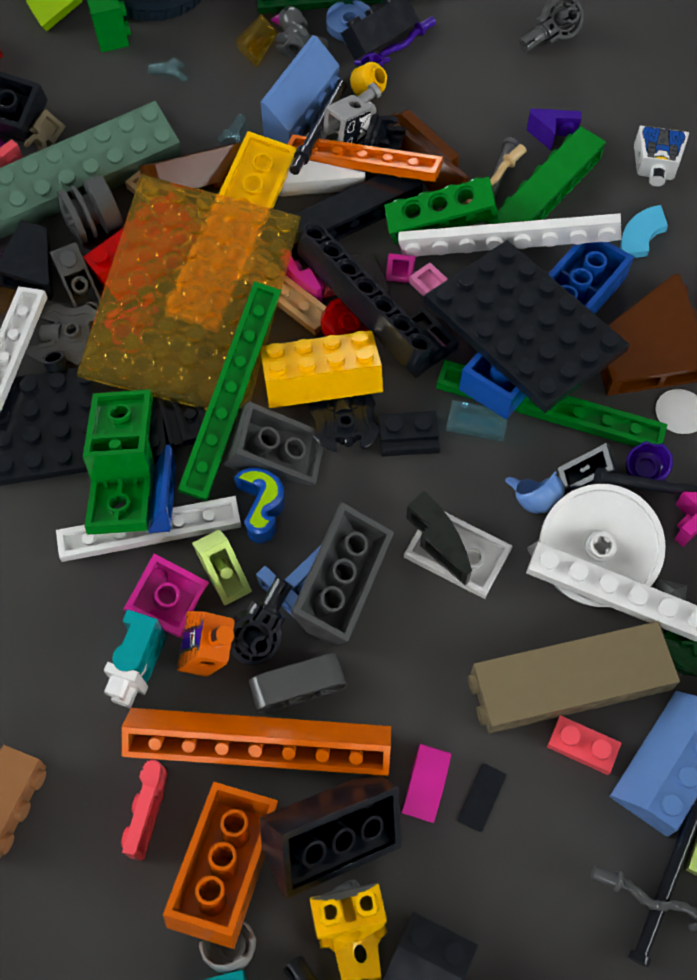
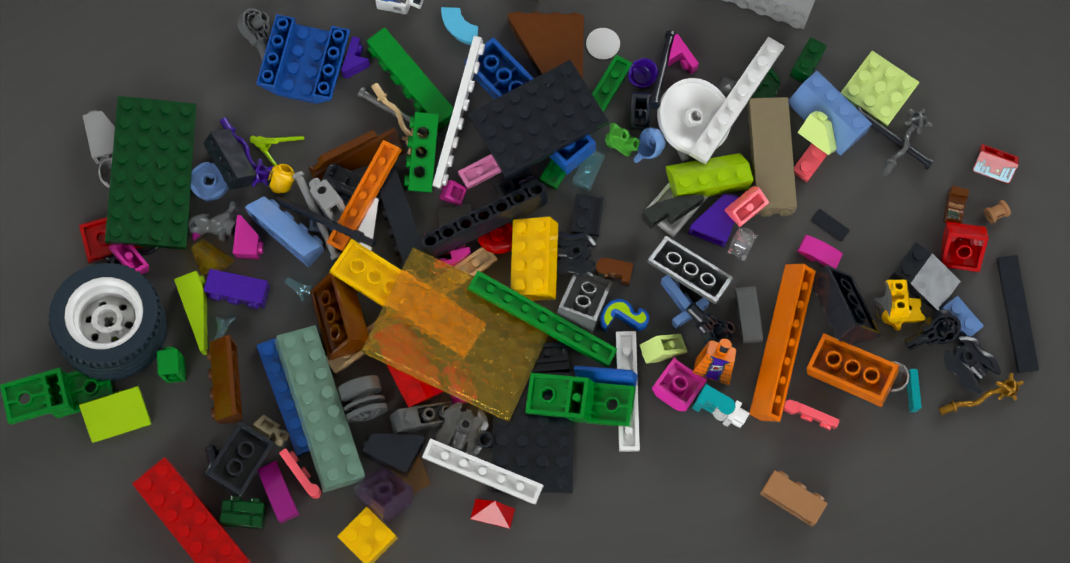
camera: 80 degrees left, 10 degrees up
(100, 80) = (225, 380): none -> reddish brown slope
(189, 36) = (195, 303): none -> lime slope
(217, 69) = (236, 289): none -> dark purple brick
(275, 62) = (246, 241): none -> dark pink slope
(332, 475) = (615, 269): none -> reddish brown leg
(412, 651) = (742, 243): none -> clear slope
(413, 63) = (265, 143): none -> lime plant
(444, 613) = (715, 223): none -> dark purple slope
(471, 644) = (747, 205): none -> coral slope
(510, 594) = (717, 177): none -> lime slope
(533, 68) = (302, 60): none -> blue slope
(533, 449) = (621, 140): none -> bright green hips
(635, 746) = (819, 132): none -> yellowish green slope

